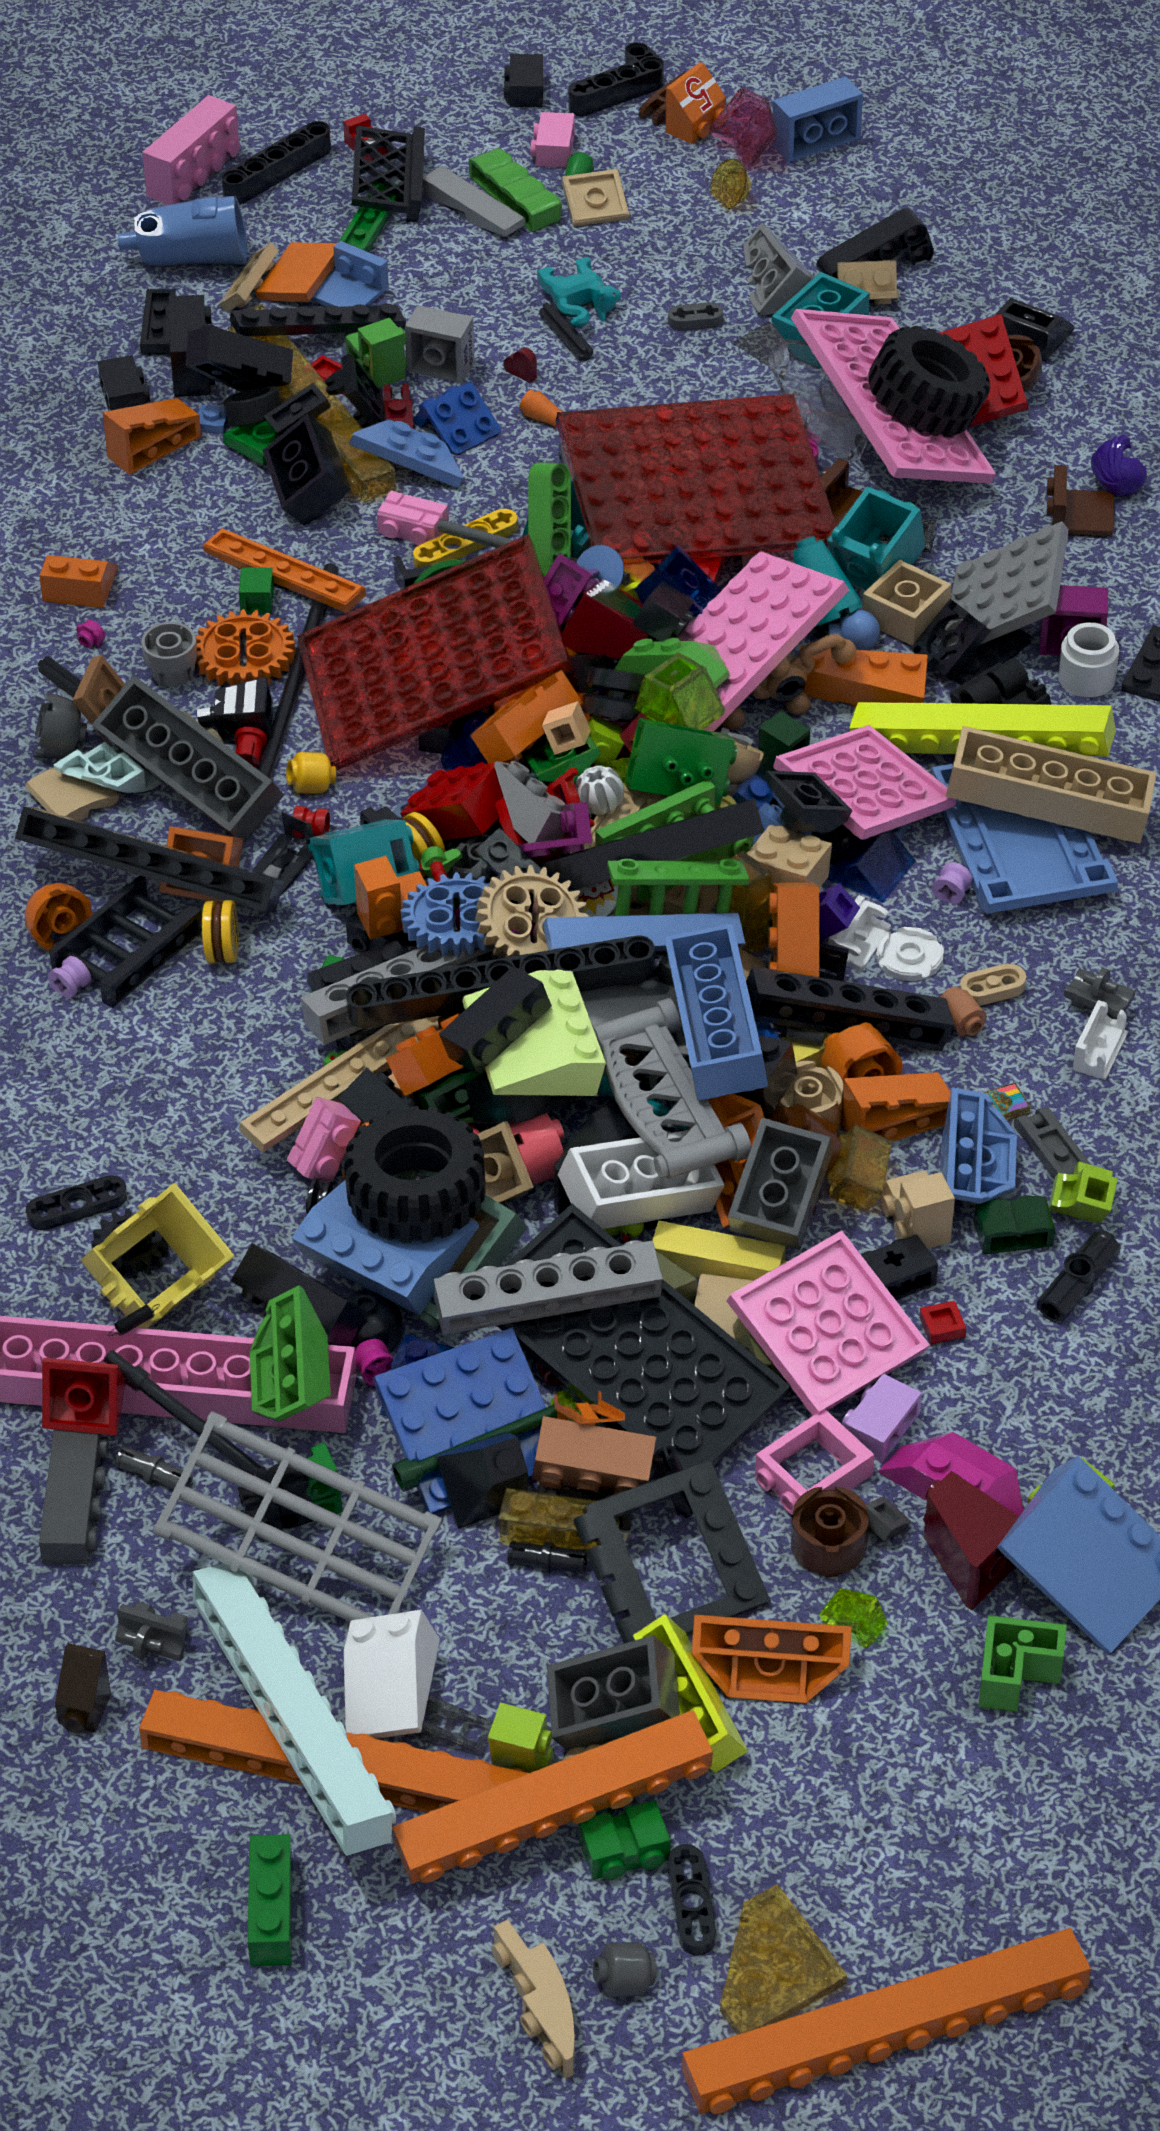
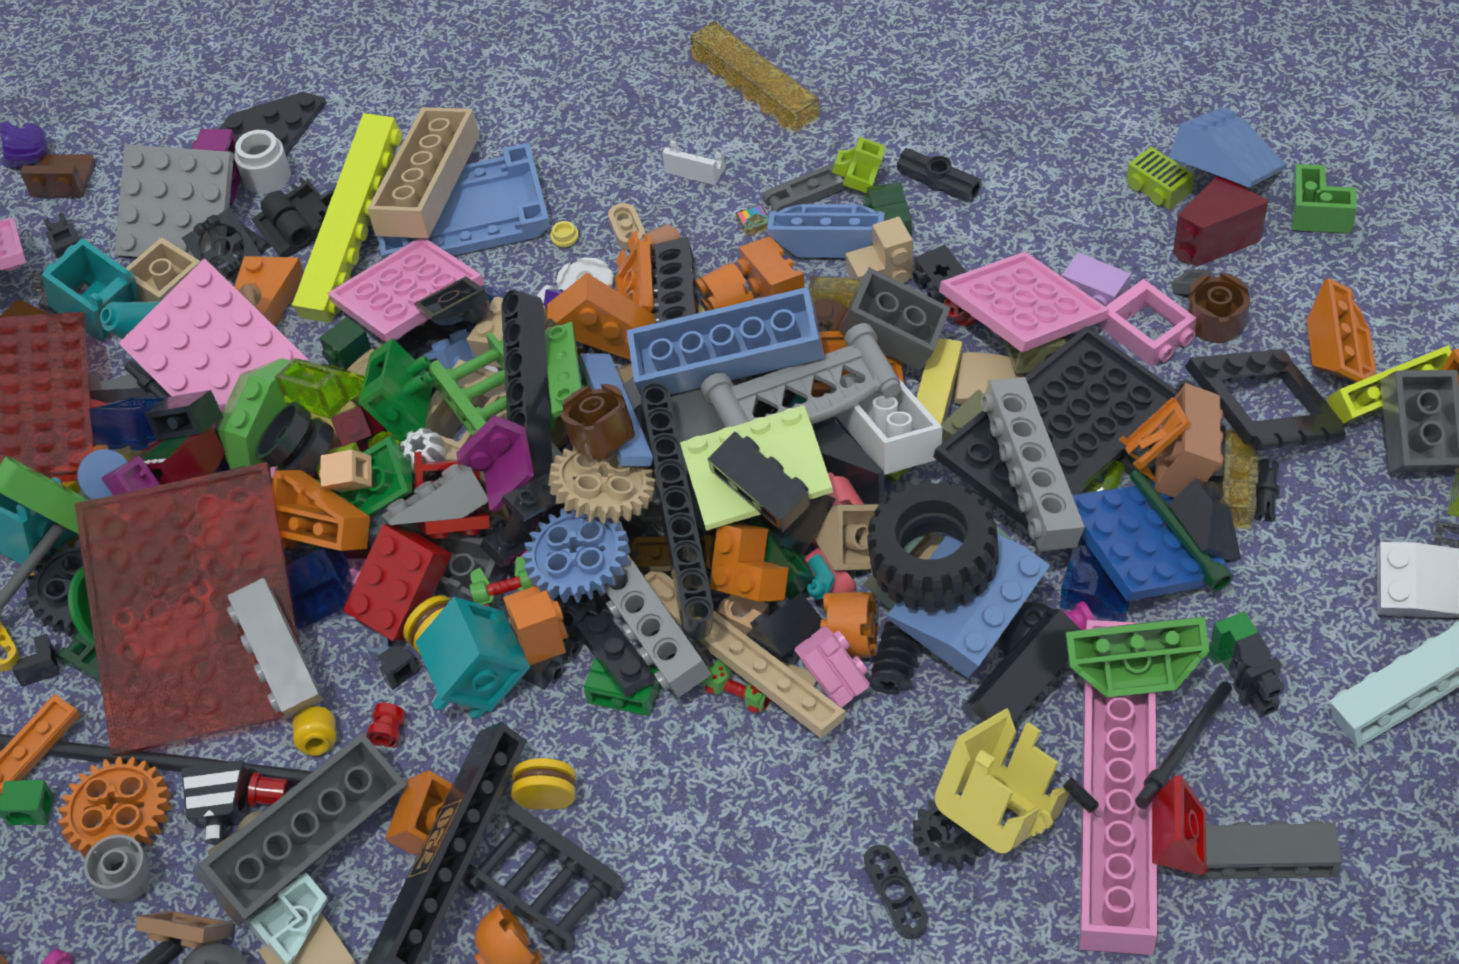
camera: 85 degrees left, 5 degrees up
(69, 977) = (590, 927): lavender wheel -> none
(149, 1468) = (1220, 788): dark grey pin -> none
(151, 1632) = (1411, 770): dark grey hips -> none
(271, 1492) = (1280, 655): light grey door -> none
(299, 860) = (420, 760): black piece -> none
(377, 714) = (275, 648): none -> light grey brick
(585, 889) = (597, 420): none -> reddish brown brick
(856, 1610) = (1287, 298): clear neon green bracket -> none
(901, 978) = (634, 272): none -> orange tile
(925, 1461) = (1142, 241): dark pink wedge -> none
(942, 1322) = (989, 250): red plate -> none
(952, 883) = (511, 250): lavender wheel -> none
(982, 524) = (60, 235): none -> black plate
(982, 931) = (564, 234): none -> light yellow plate
(1089, 988) = (644, 160): dark grey hips -> none

